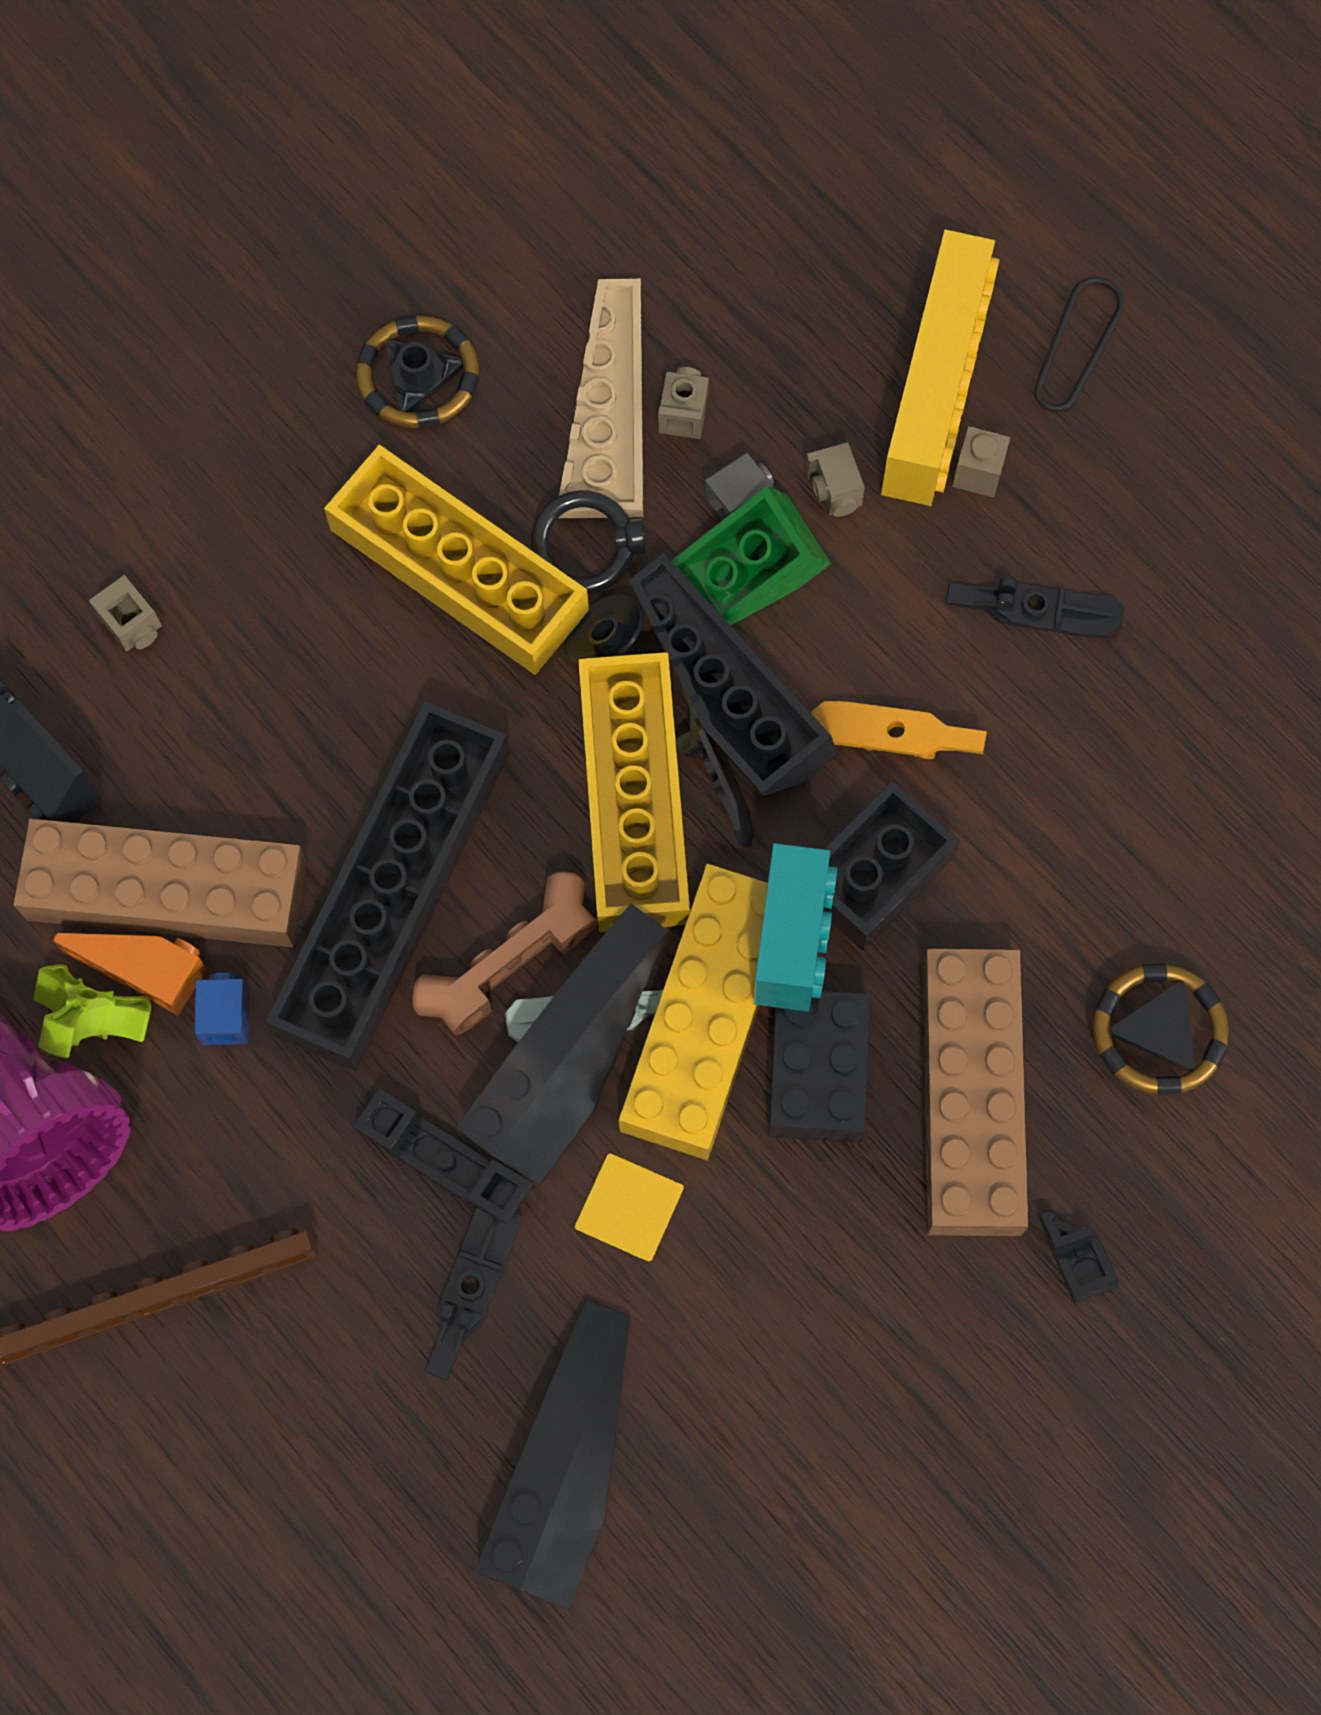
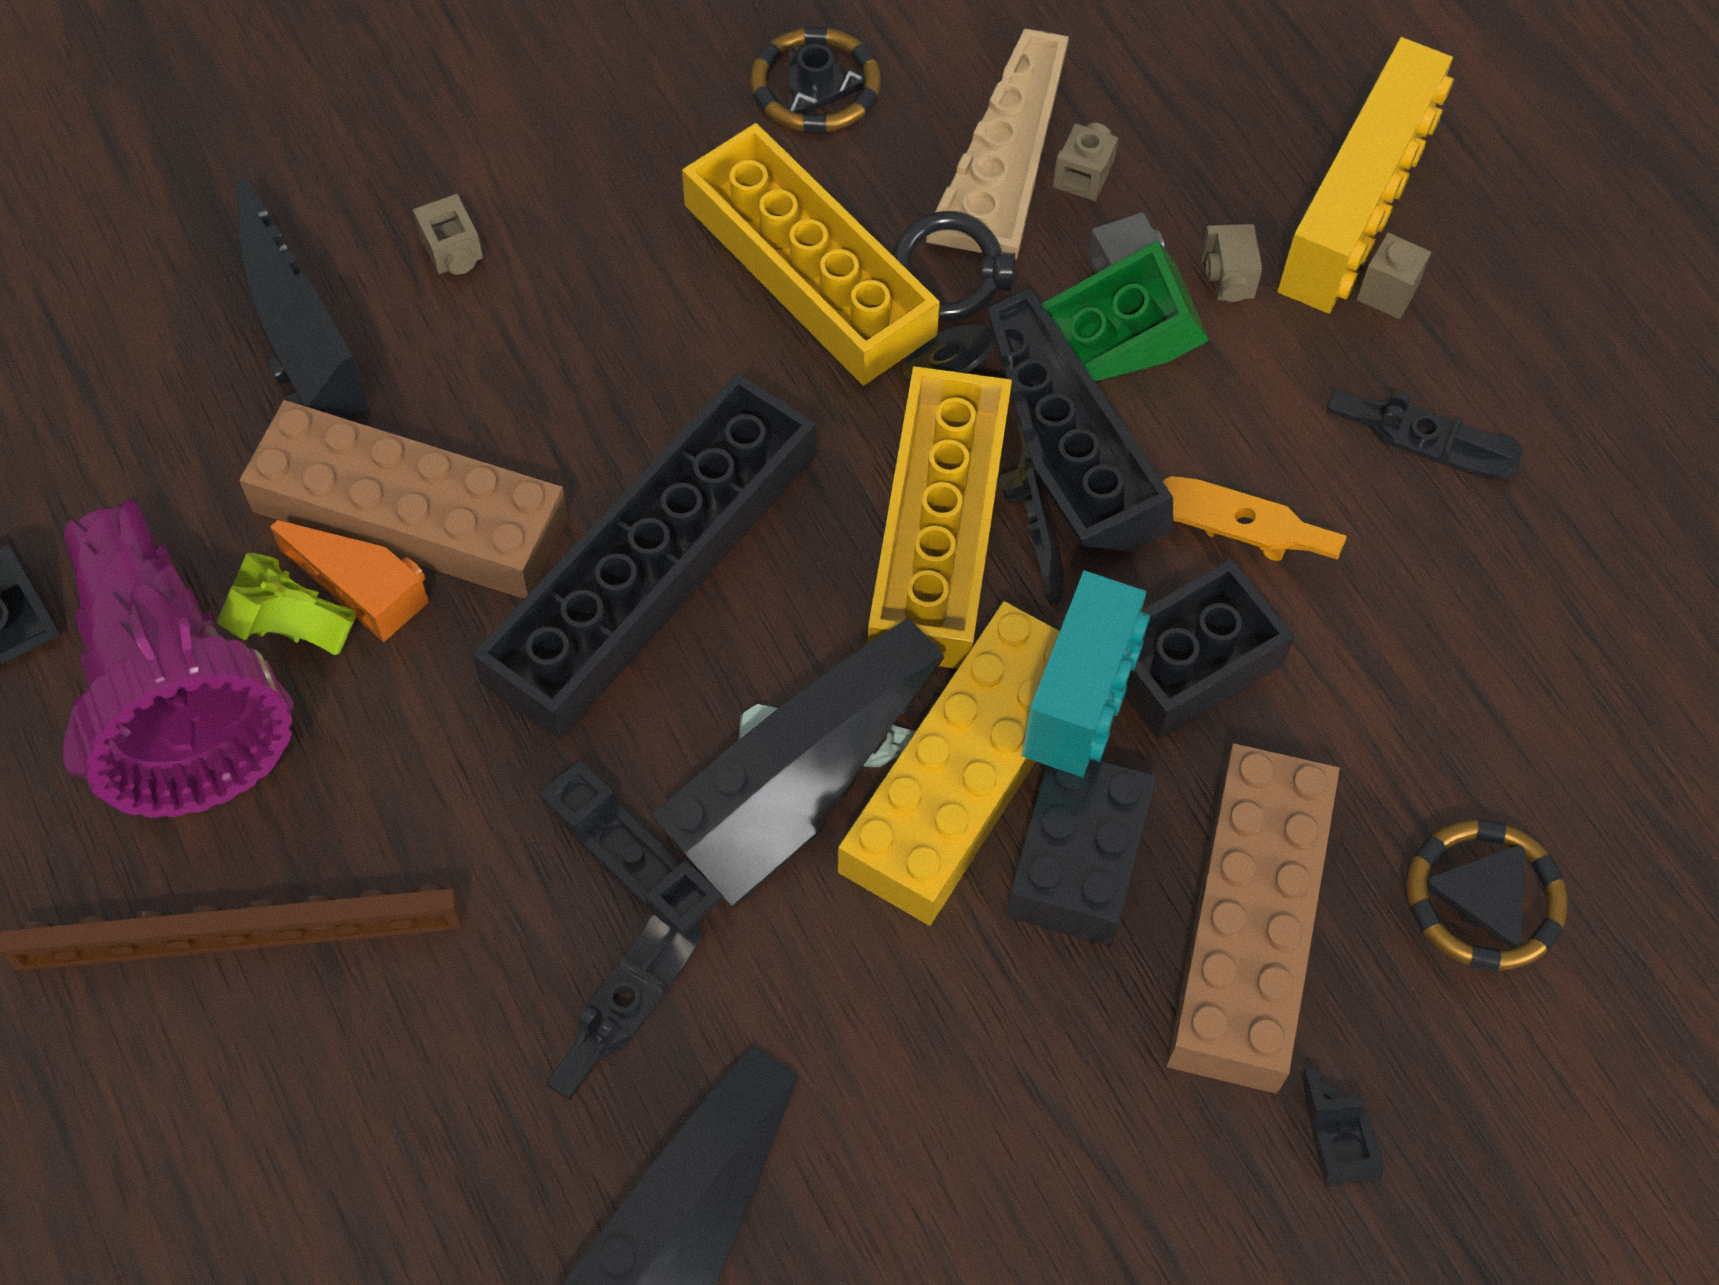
camera: 10 degrees right, 10 degrees down
(222, 1010) = (431, 642): blue brick -> none
(463, 1000) = (700, 687): nougat plate -> none
(629, 1207) = (827, 956): yellow sticker -> none
(1099, 348) = (1542, 136): black piece -> none

